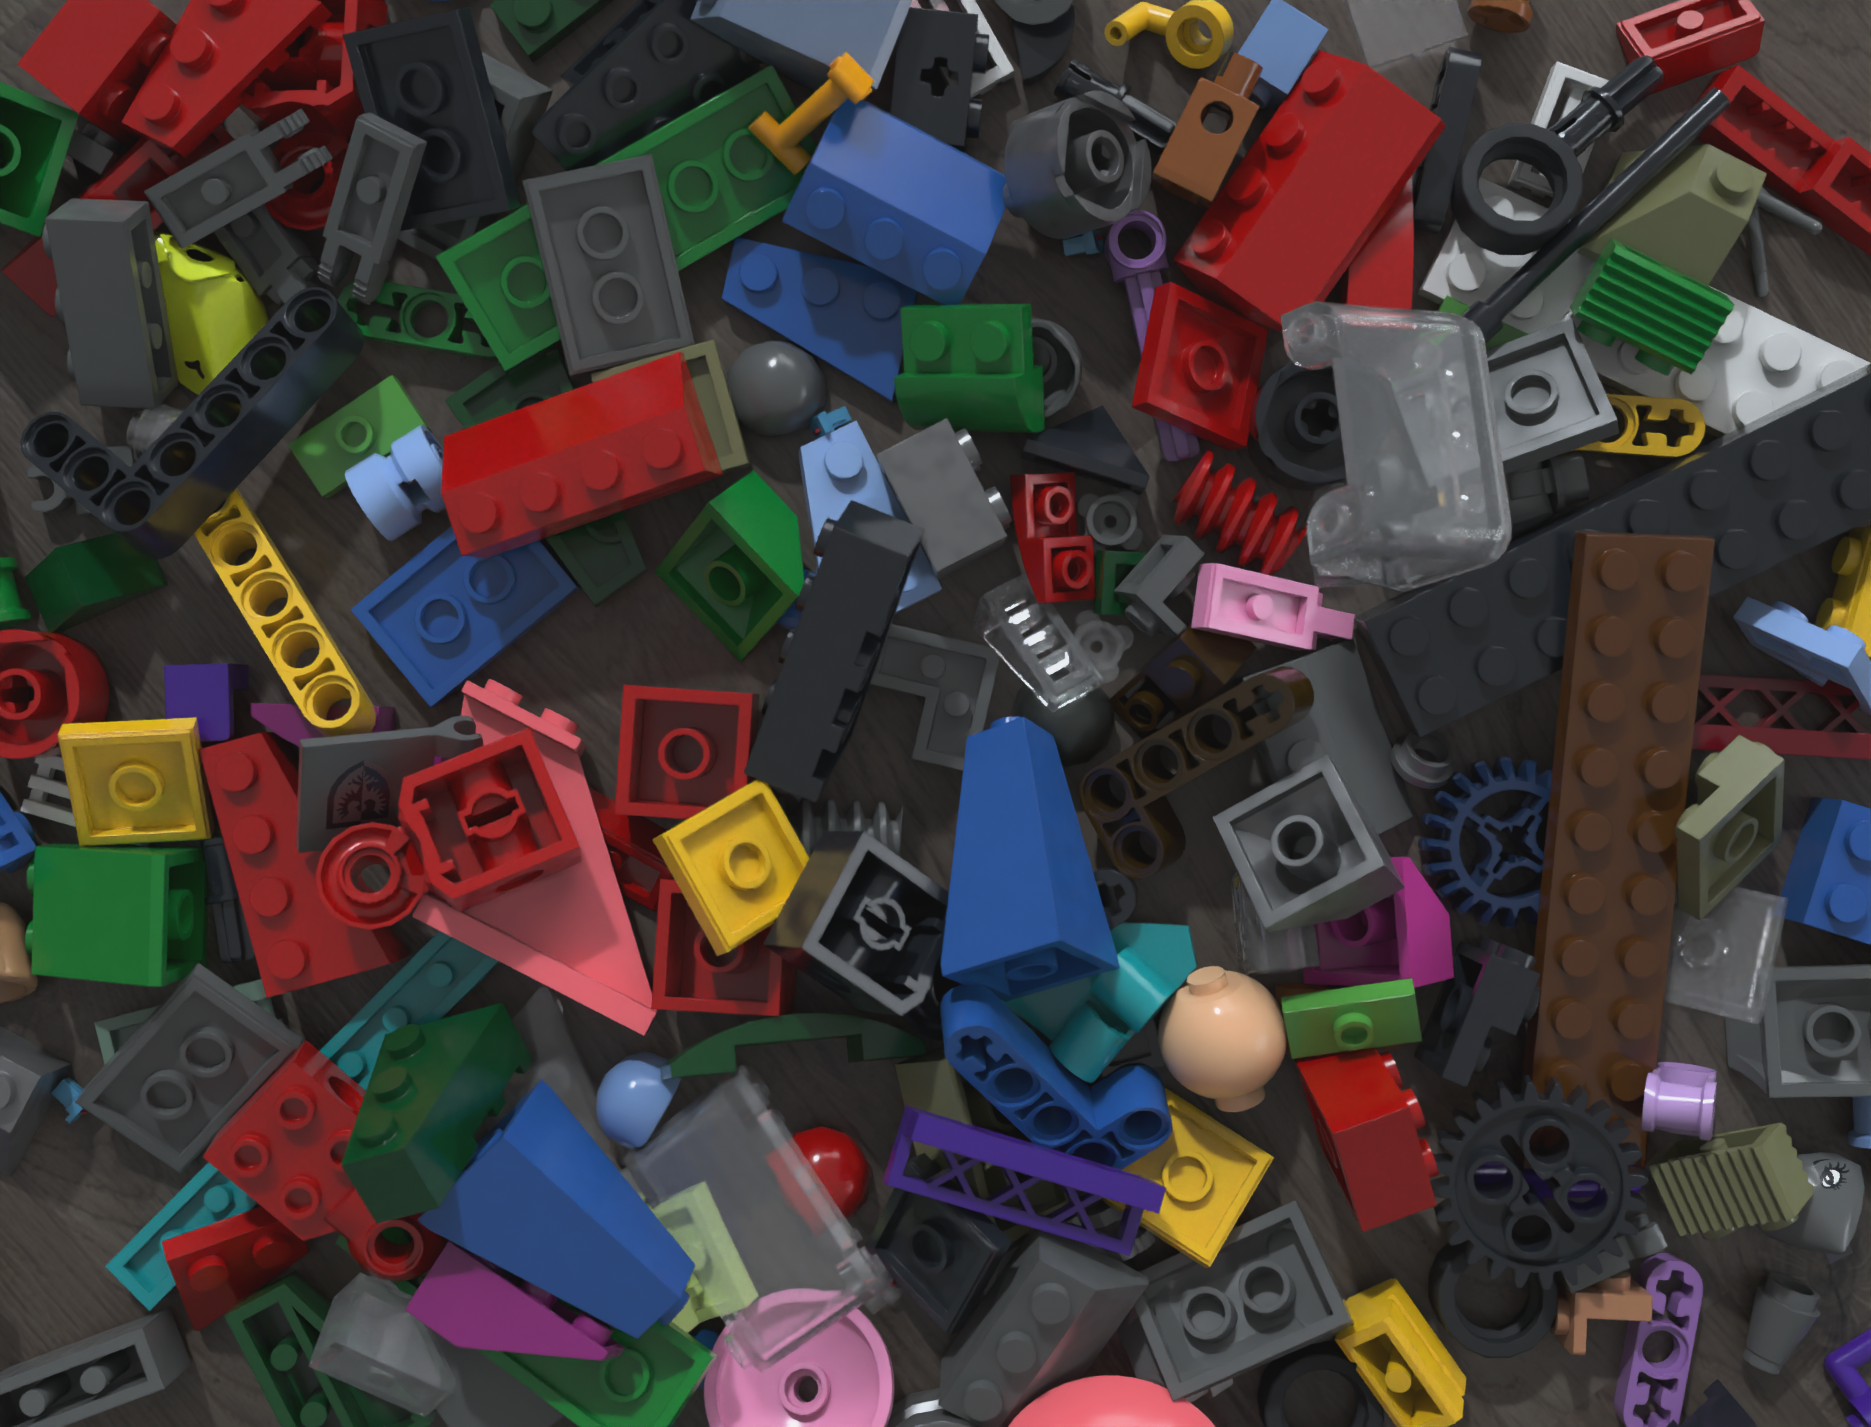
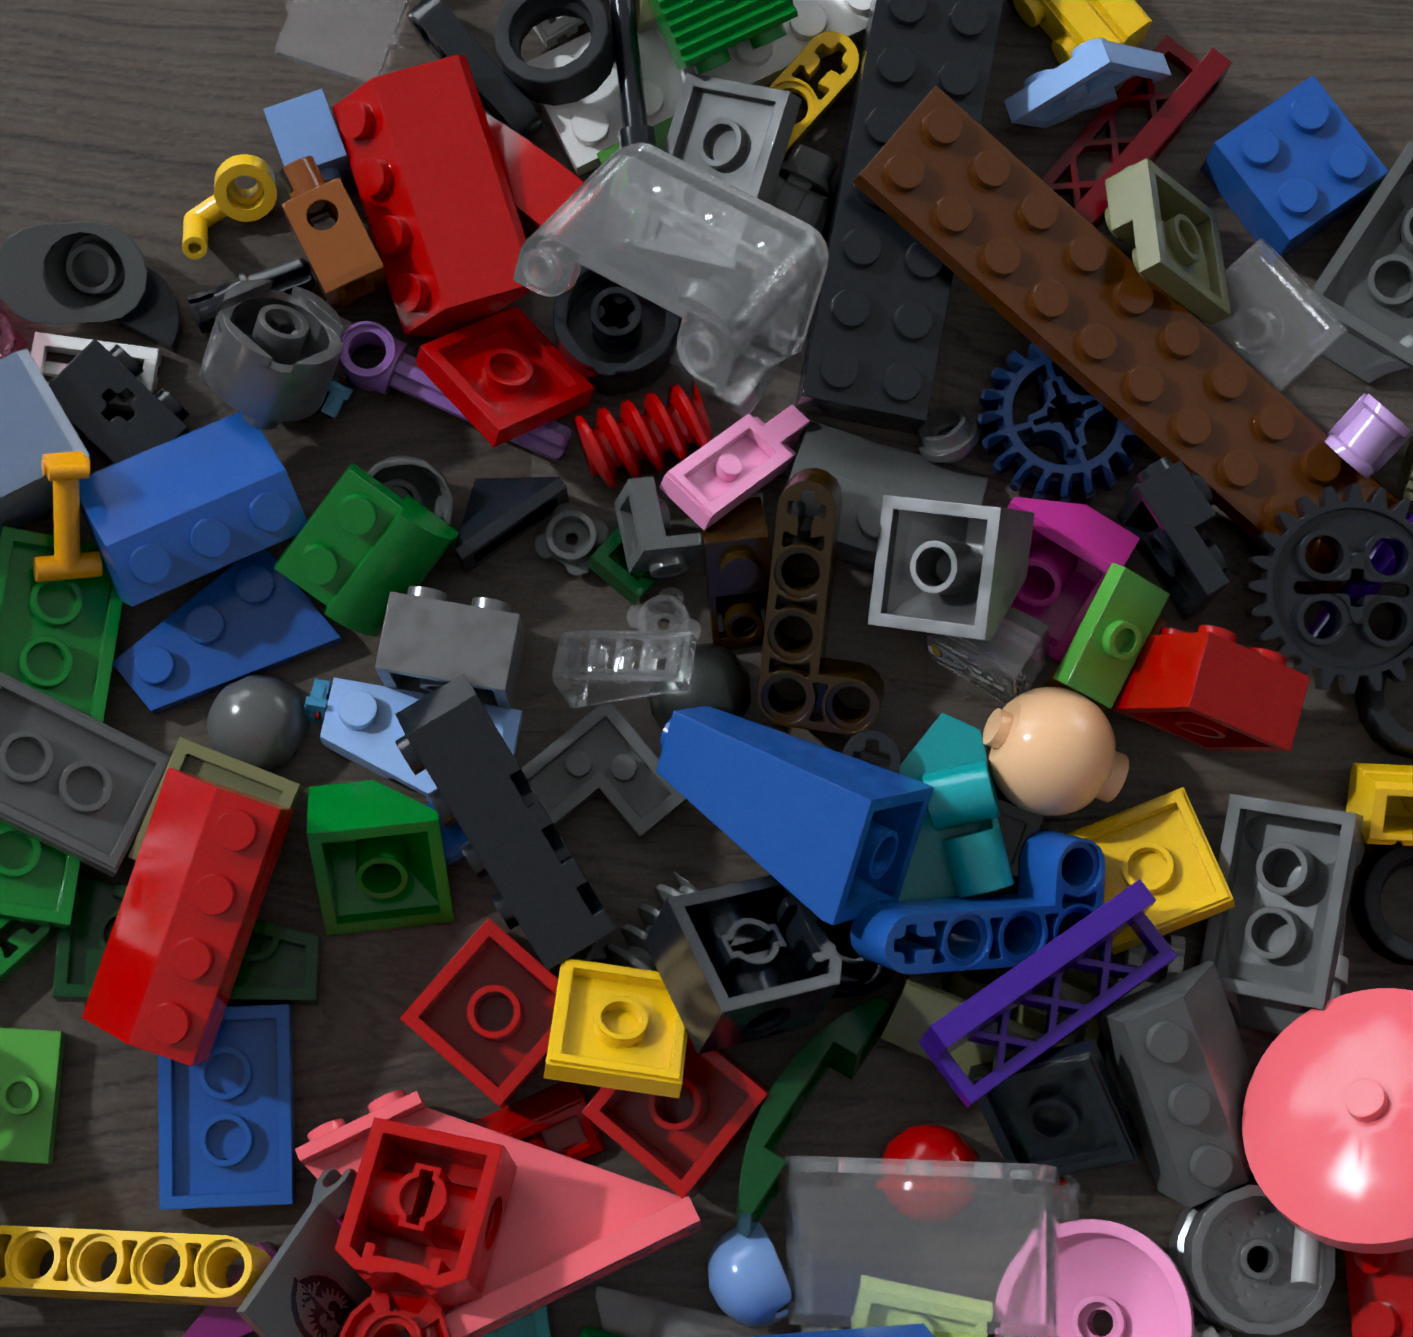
camera: 55 degrees left, 10 degrees down
(383, 485) = (98, 1105): light blue wheel -> none
(1046, 530) = (562, 601): red slope -> none

